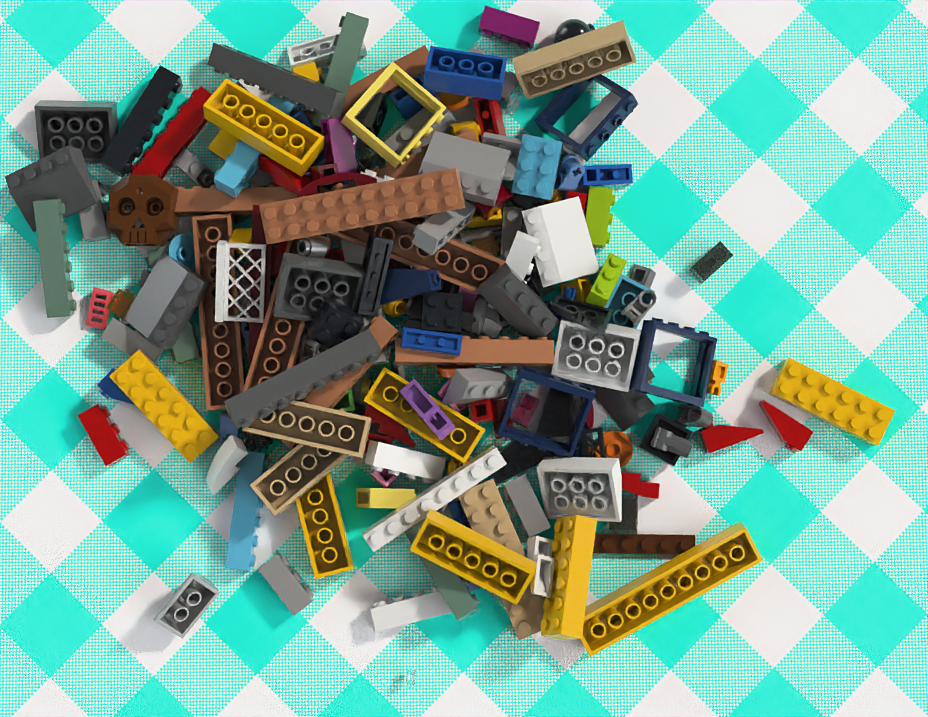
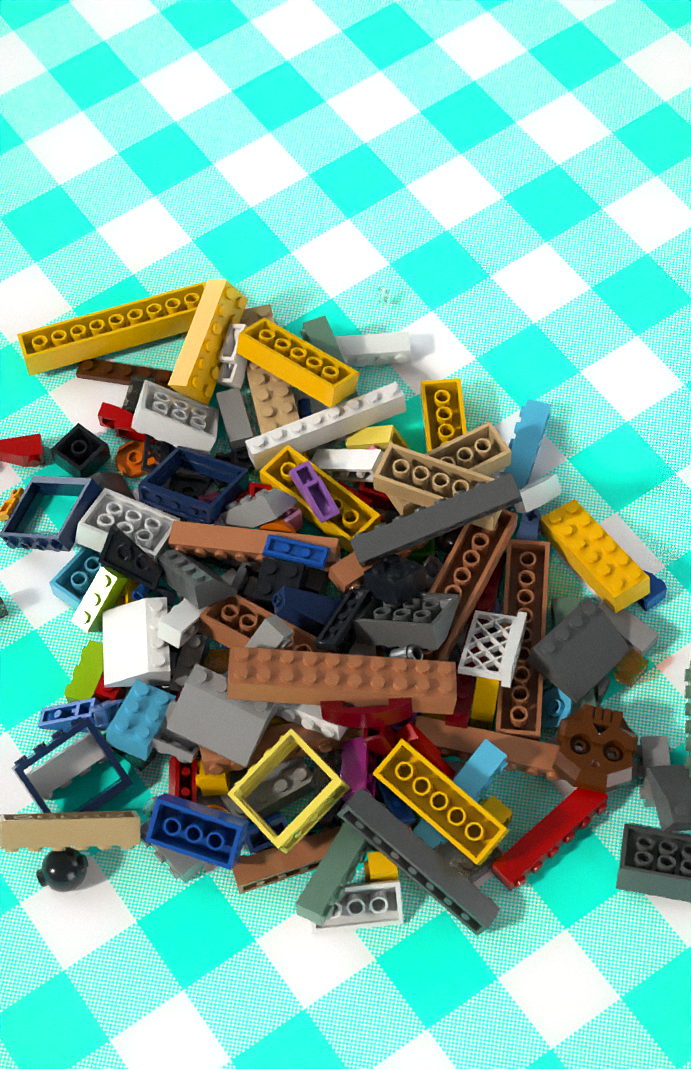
camera: 170 degrees left, 25 degrees down
(92, 307) = (652, 685): coral slope -> none
(104, 434) = (664, 545): red brick -> none
(141, 122) = (586, 856): black brick -> none
(187, 604) = (593, 378): light grey slope -> none
(194, 168) = (531, 797): light grey slope -> none
(287, 583) = (491, 387): light grey brick -> none
(508, 27) = (135, 896): magenta brick -> none
(638, 307) = (70, 563): light grey piece -> none
(642, 275) = (60, 613): dark grey slope -> none
(666, 441) = (78, 440): dark grey piece -> none
(693, 416) = (48, 466): dark grey piece -> none

